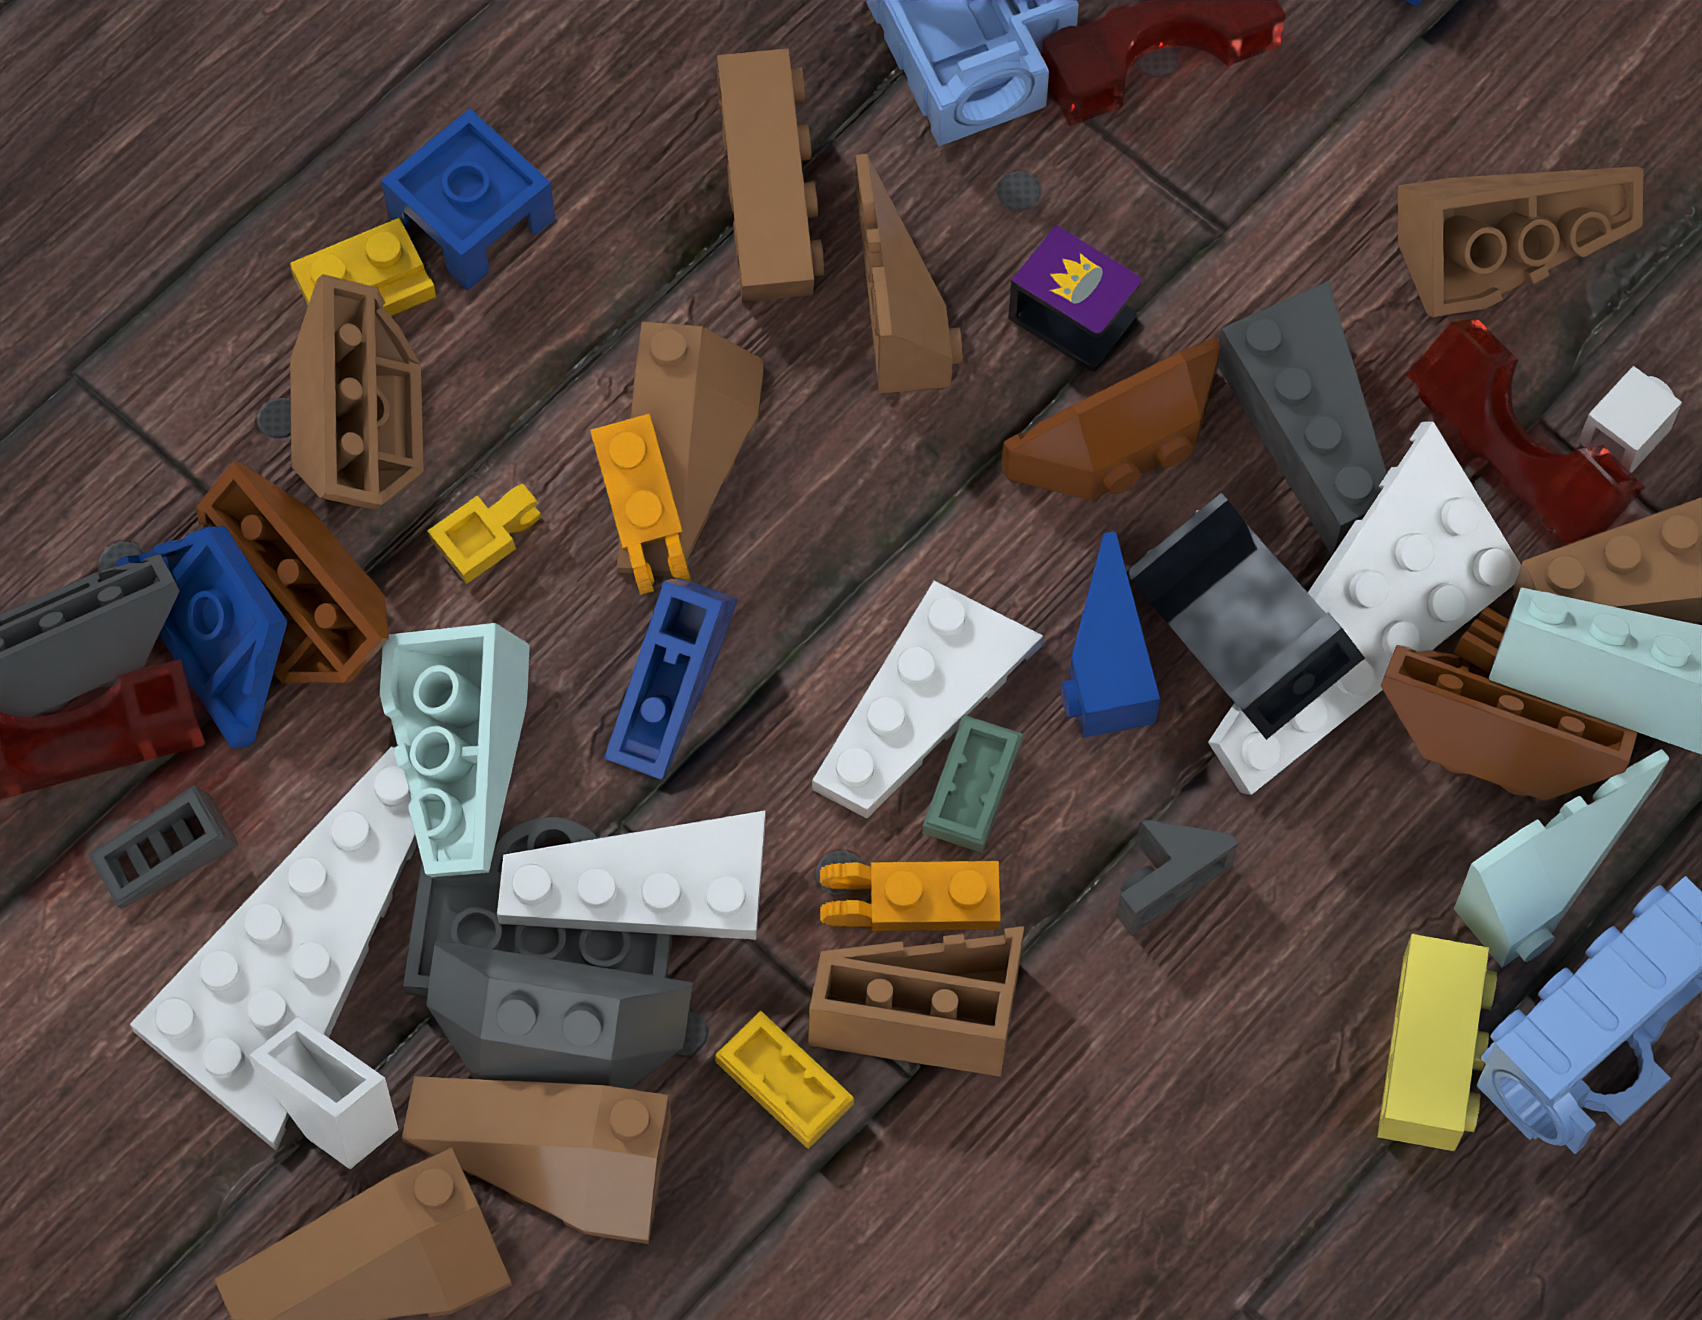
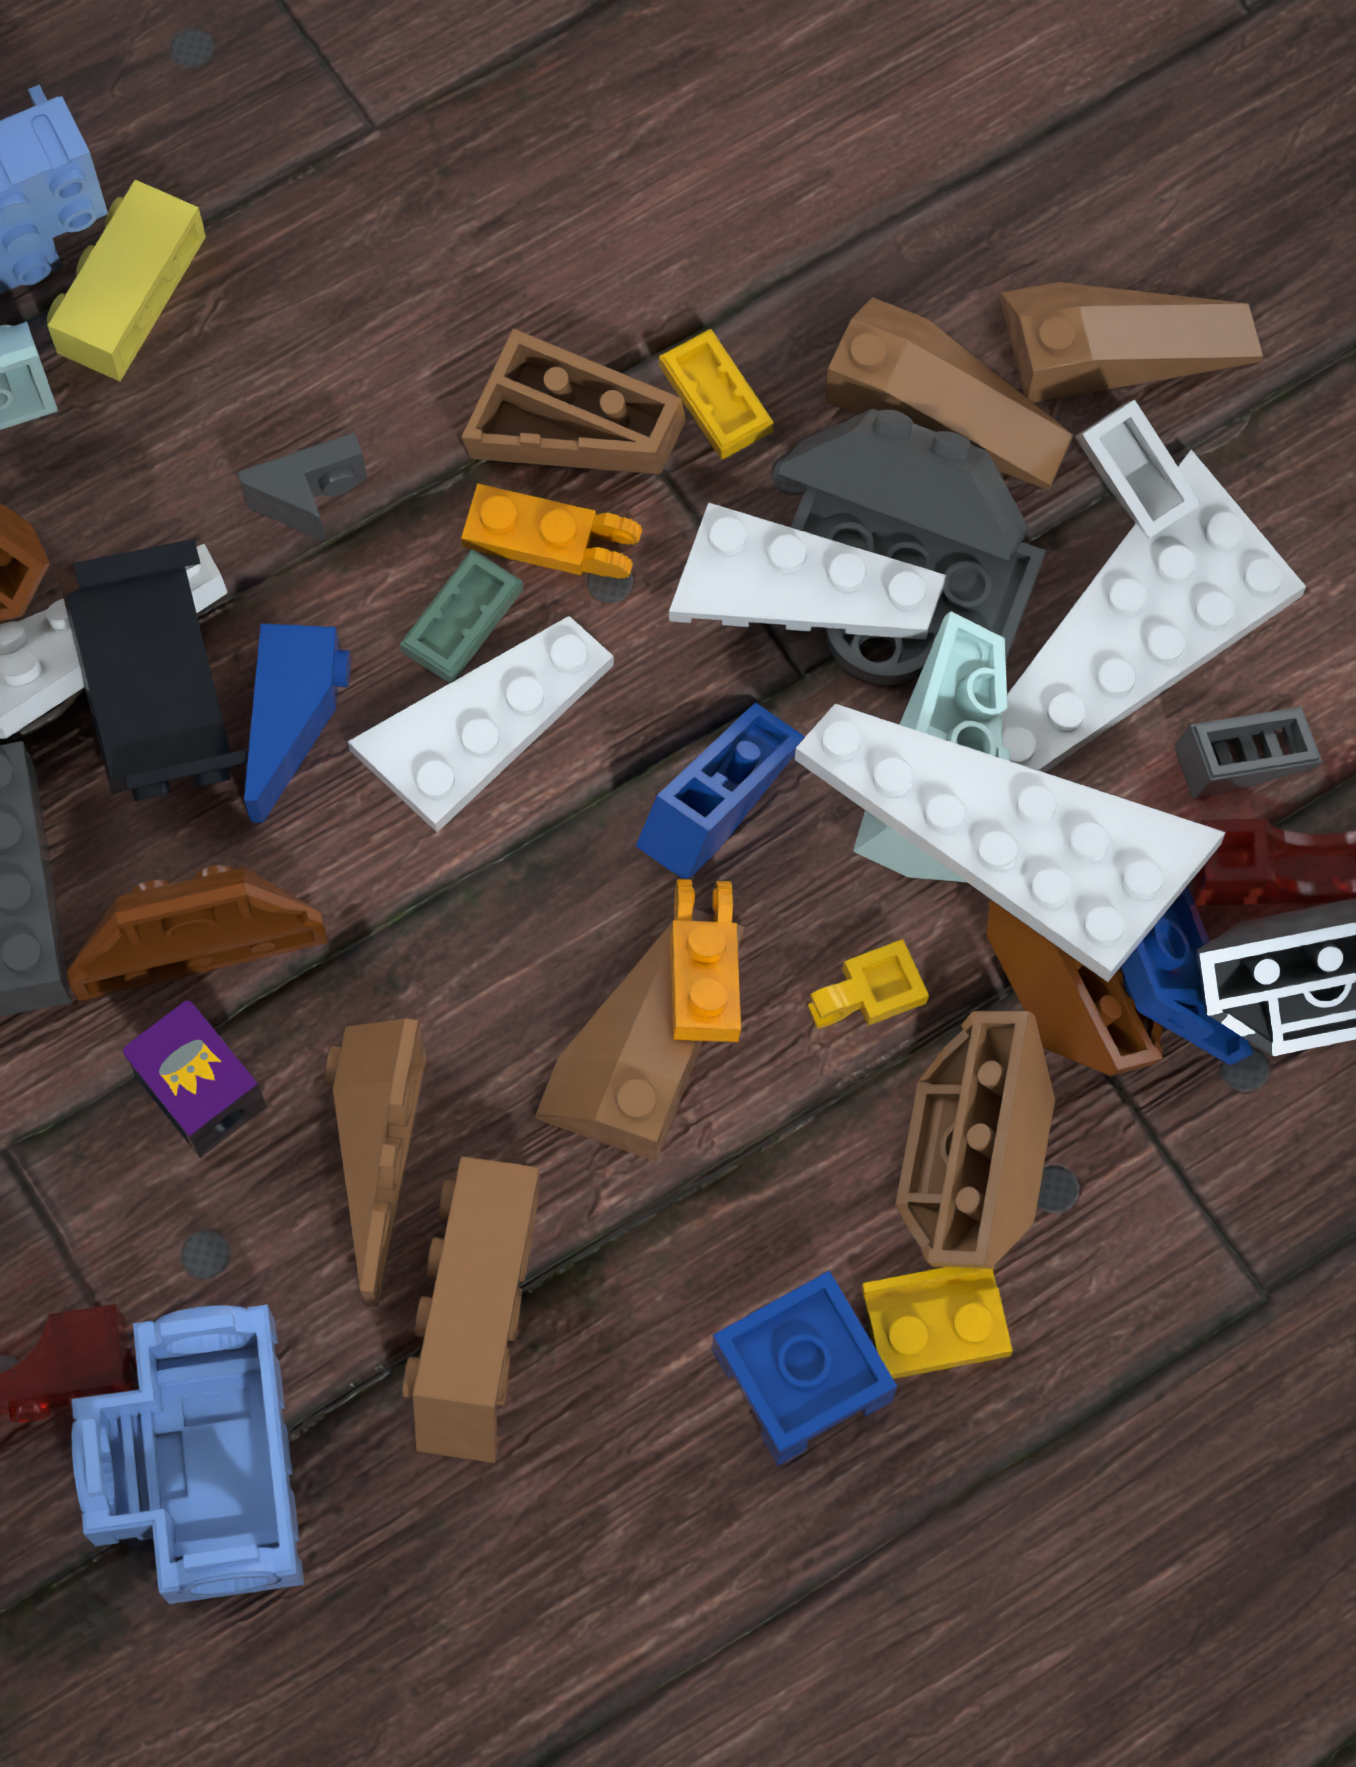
camera: 165 degrees left, 5 degrees up
(347, 633) = (1046, 849): none -> white wing

